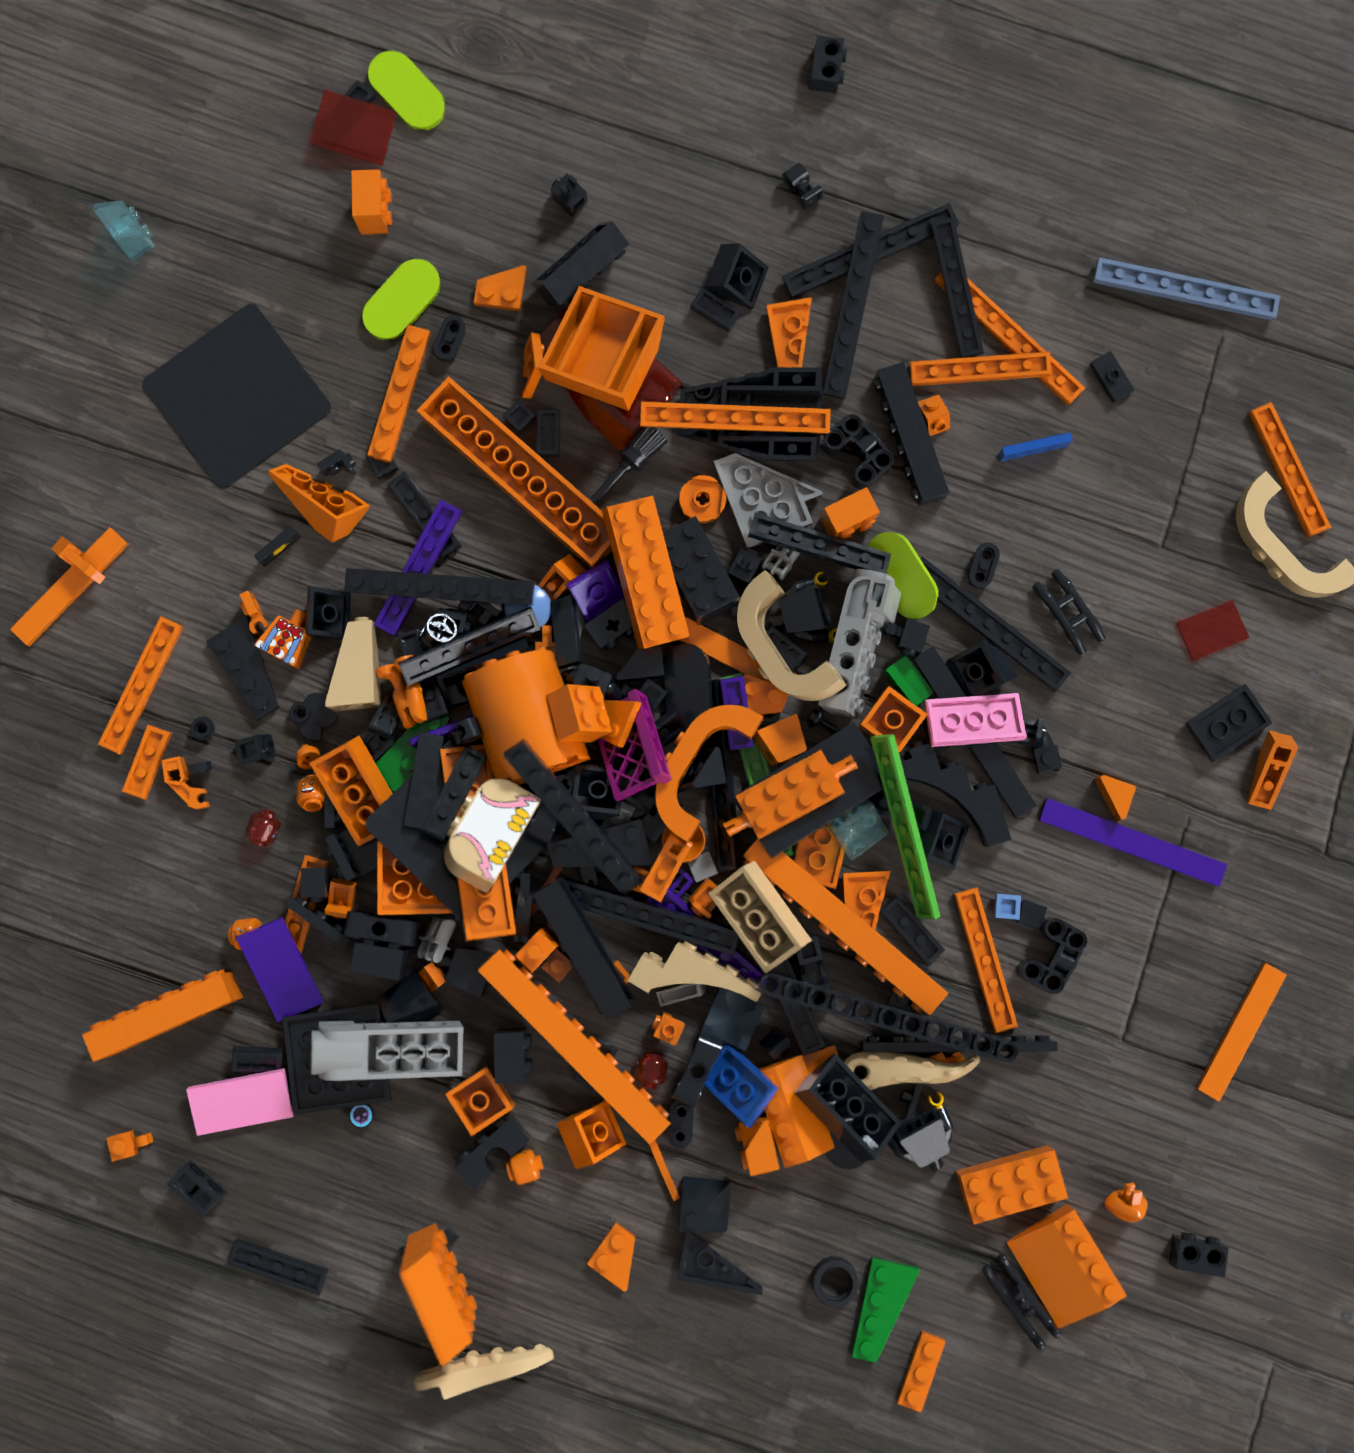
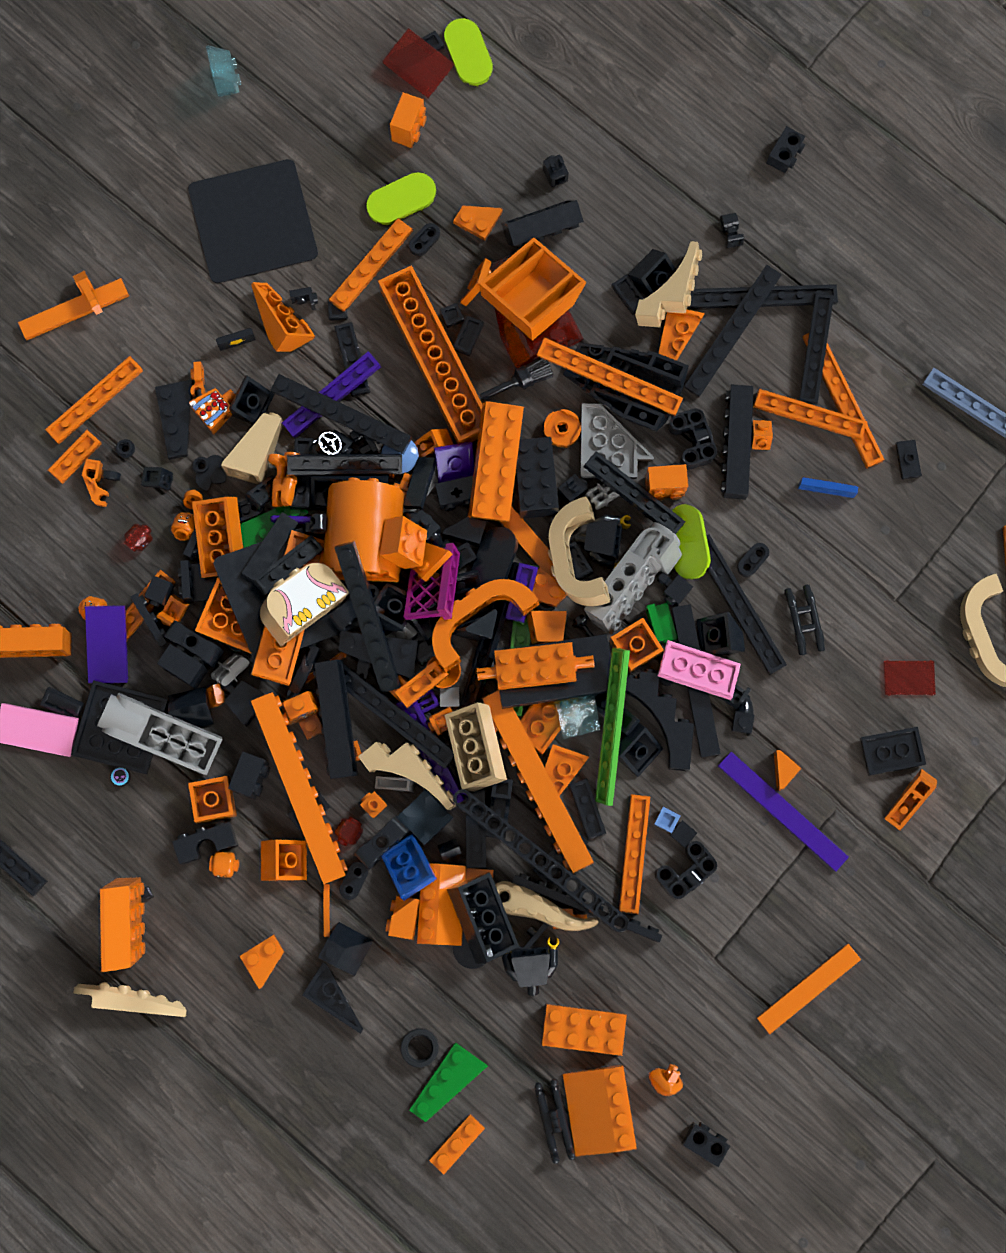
camera: 25 degrees right, 5 degrees down
(768, 290) = (674, 294): none -> tan arch

